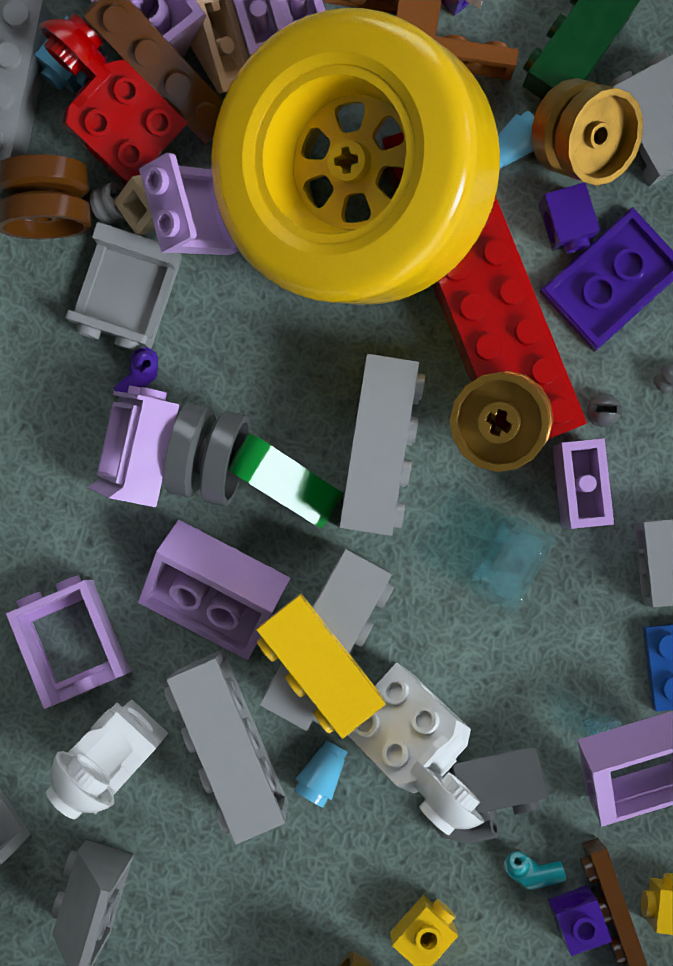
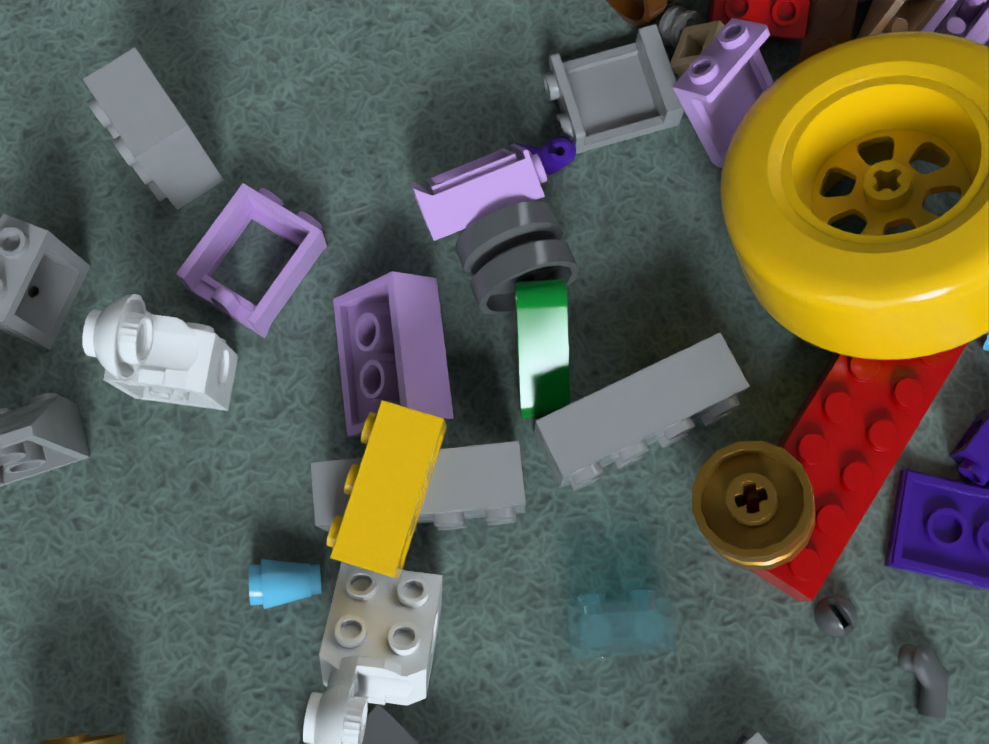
camera: 60 degrees right, 10 degrees down
(228, 747) = (250, 467): light grey brick -> none
(583, 484) = (749, 641): lavender brick -> none

